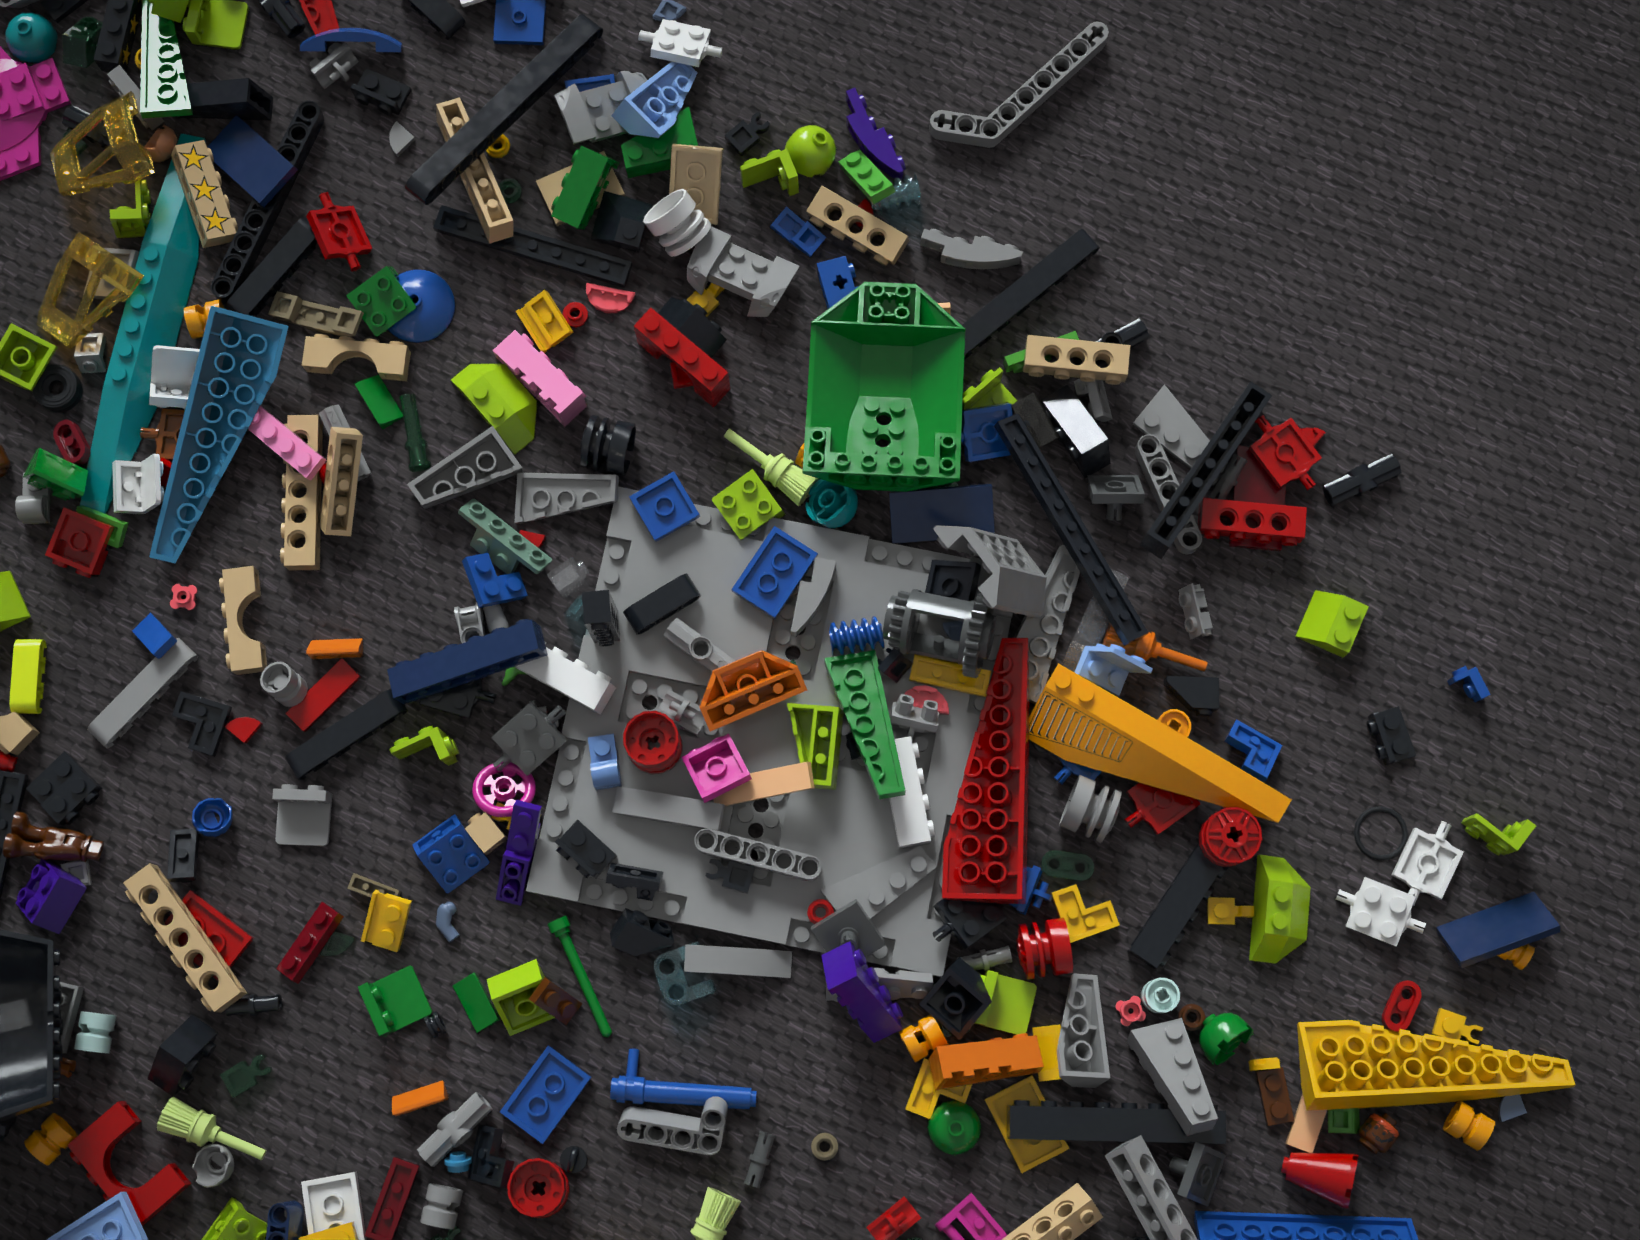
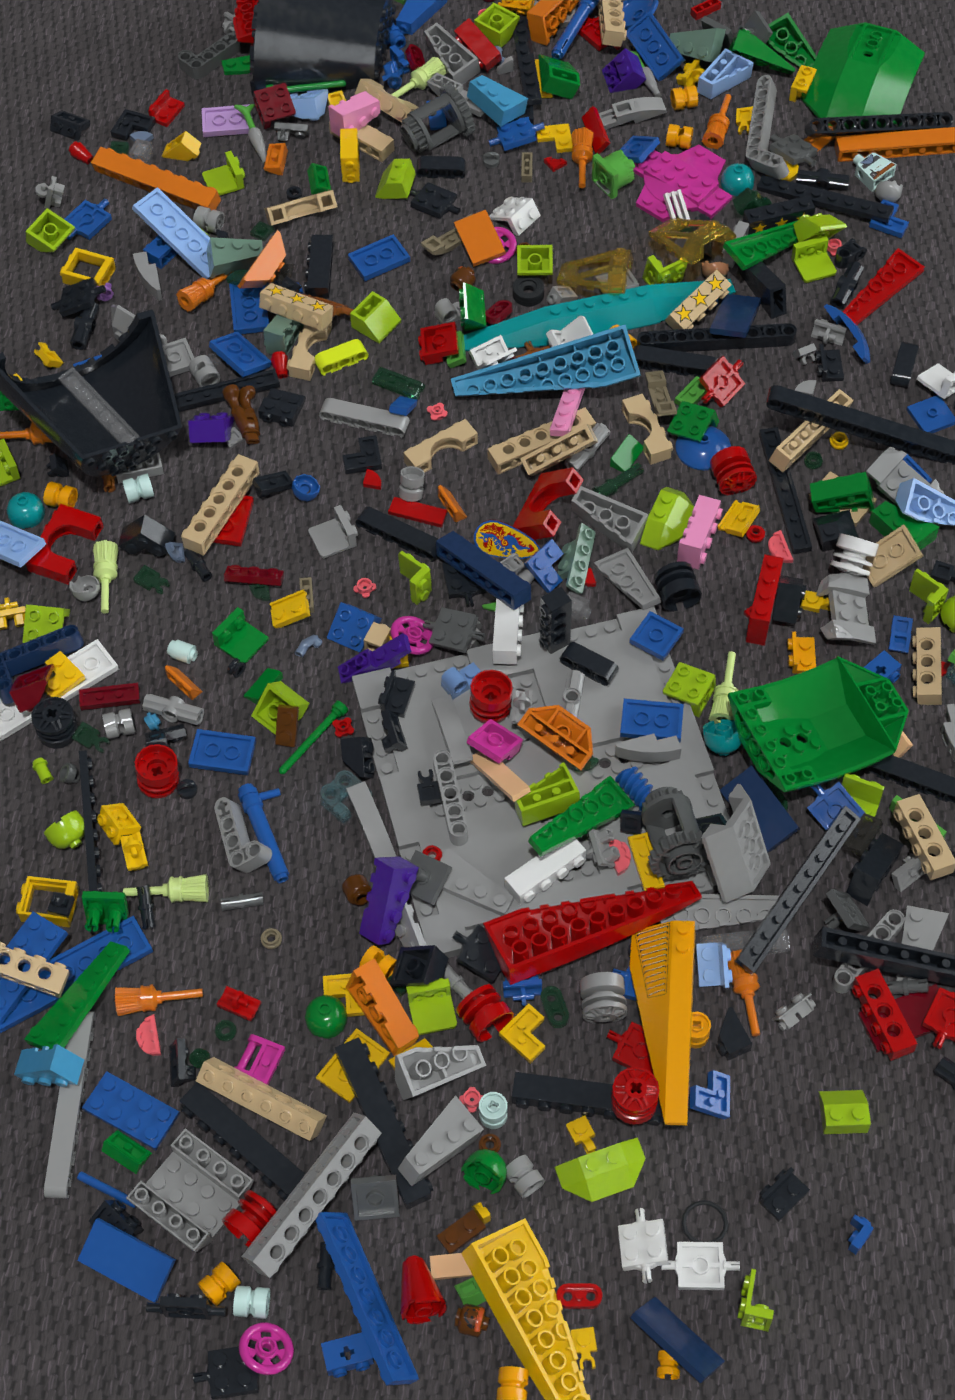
camera: 65 degrees right, 20 degrees down
(16, 122) = (678, 193): none -> white tile
(45, 1193) = (25, 510): none -> teal cylinder
(111, 624) = (398, 383): none -> clear green plate
(221, 1025) = (175, 551): none -> sand blue tile
(333, 277) = (691, 393): none -> bright green plate
(347, 111) = (805, 352): none -> light grey tile
(376, 1081) = (182, 651): none -> light aqua brick
(381, 523) = (547, 488): none -> red arch
(402, 805) = (364, 582): none -> coral plate
(429, 613) = (503, 539): none -> shield
(475, 291) = (733, 470): none -> red wheel
(591, 938) = (342, 732): none -> red plate
(766, 354) = (802, 653): none -> light orange bracket
(814, 1018) = (356, 889): none -> reddish brown head
(1249, 998) = (522, 1173): none -> light grey wheel

